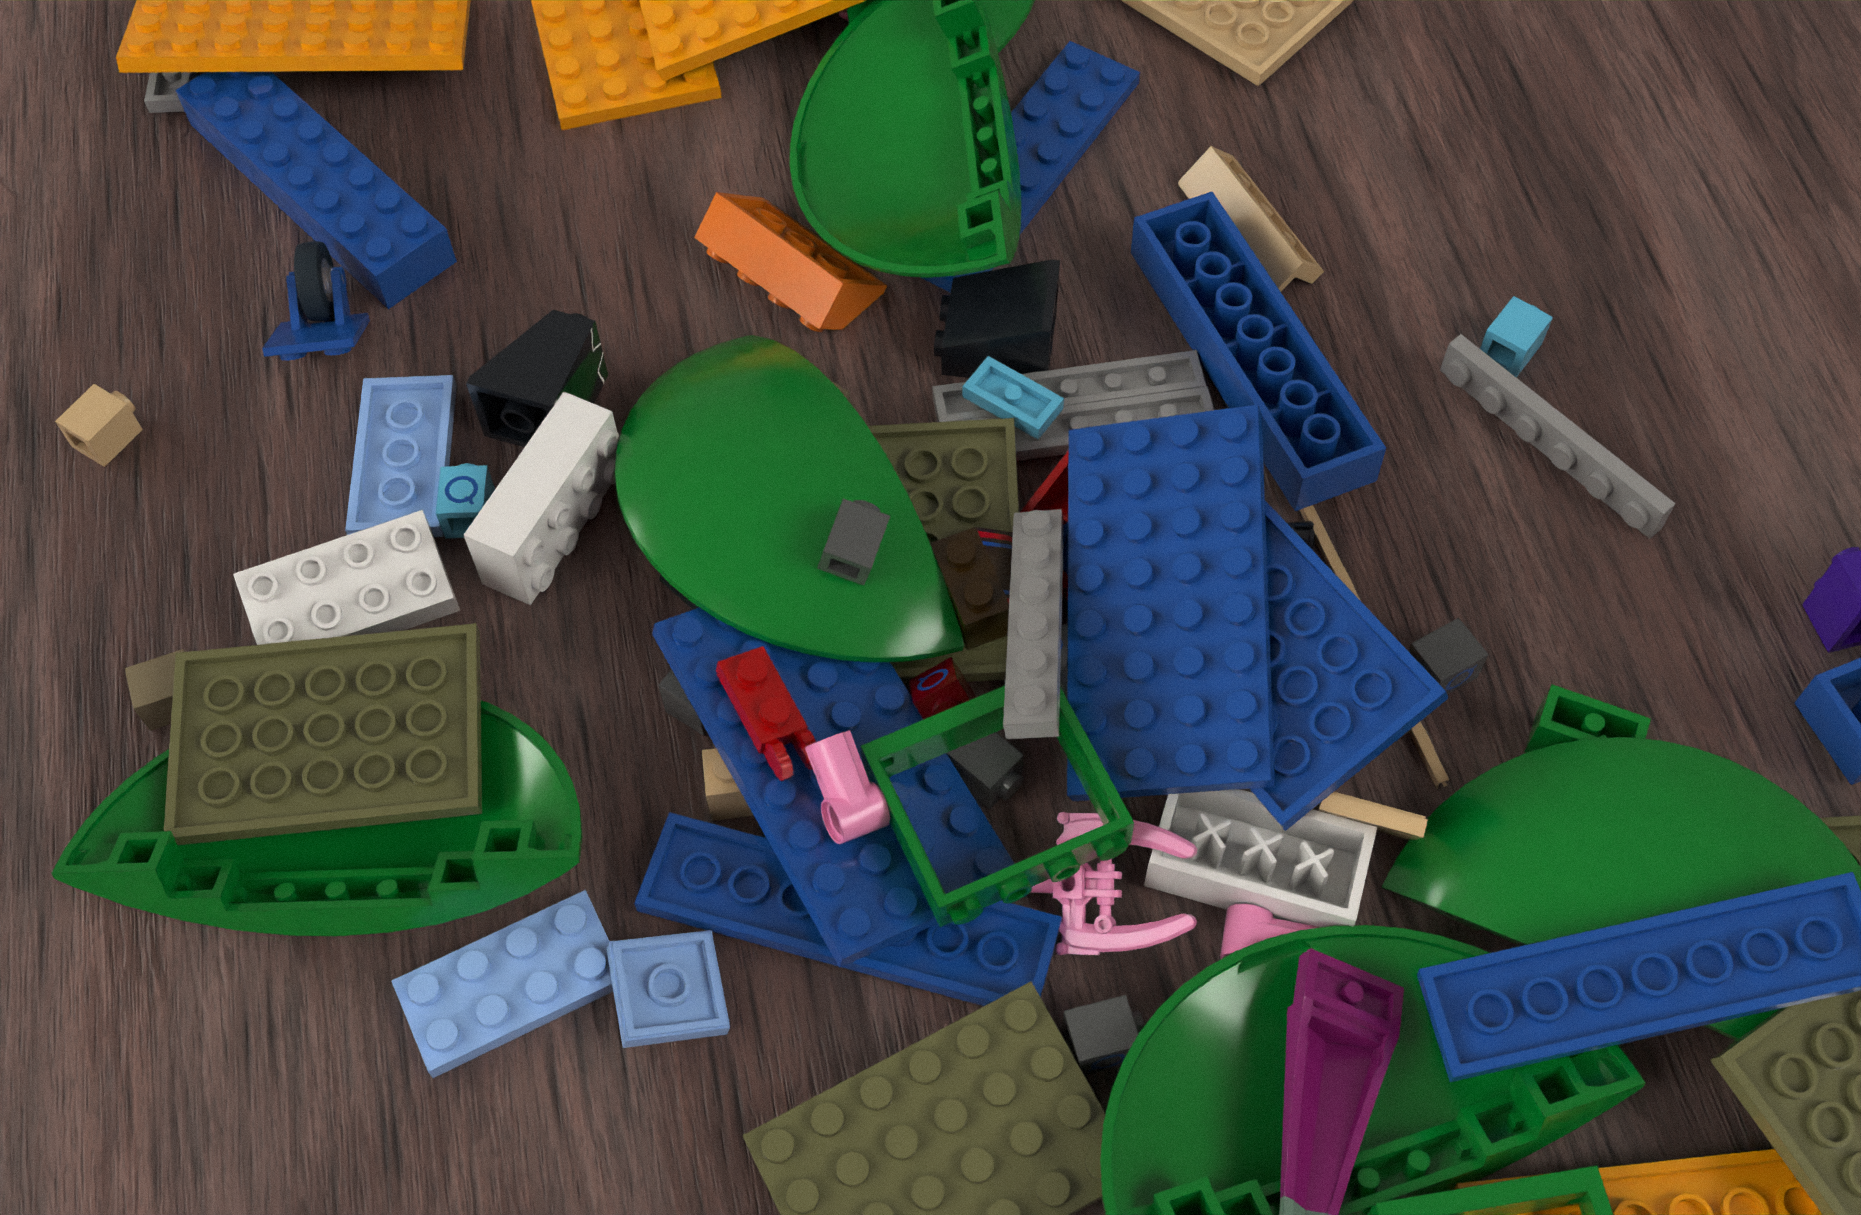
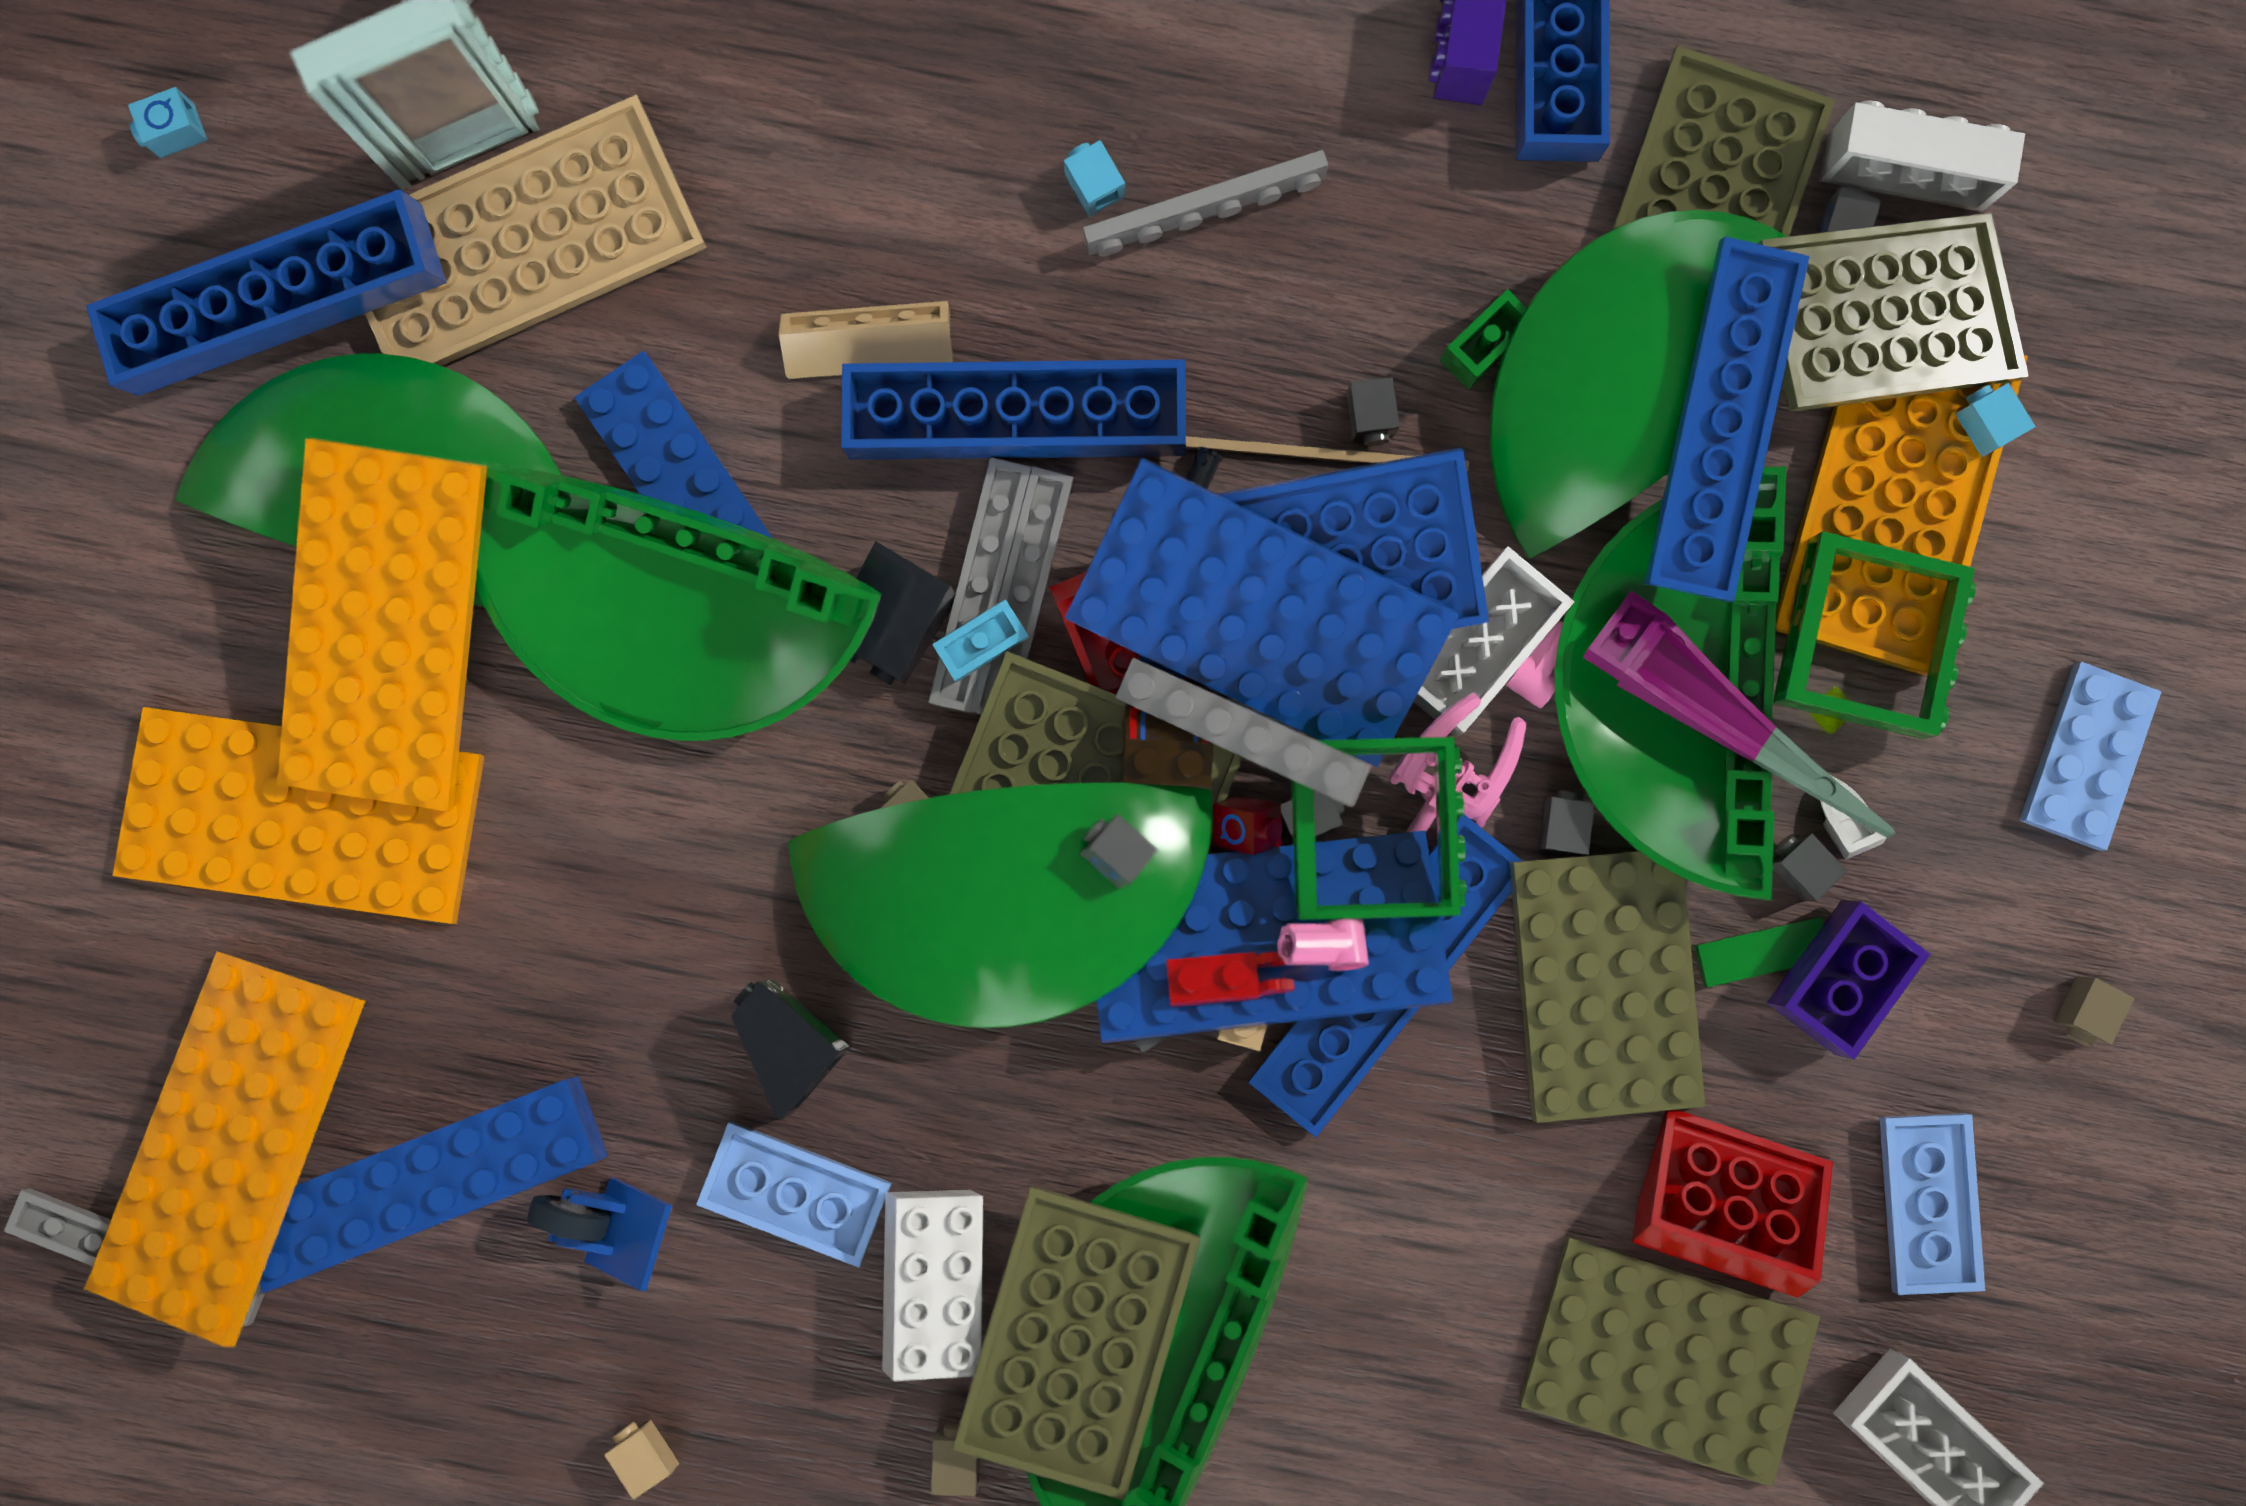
camera: 70 degrees left, 25 degrees up
(461, 496) = (869, 1151): medium azure brick -> none
(506, 984) = (1336, 1259): light blue plate -> none
(545, 499) = (911, 1083): white brick -> none
(667, 988) = (1393, 1136): light blue tile -> none
(787, 261) = (717, 780): orange slope -> none
(1385, 818) = (1499, 534): tan tile -> none

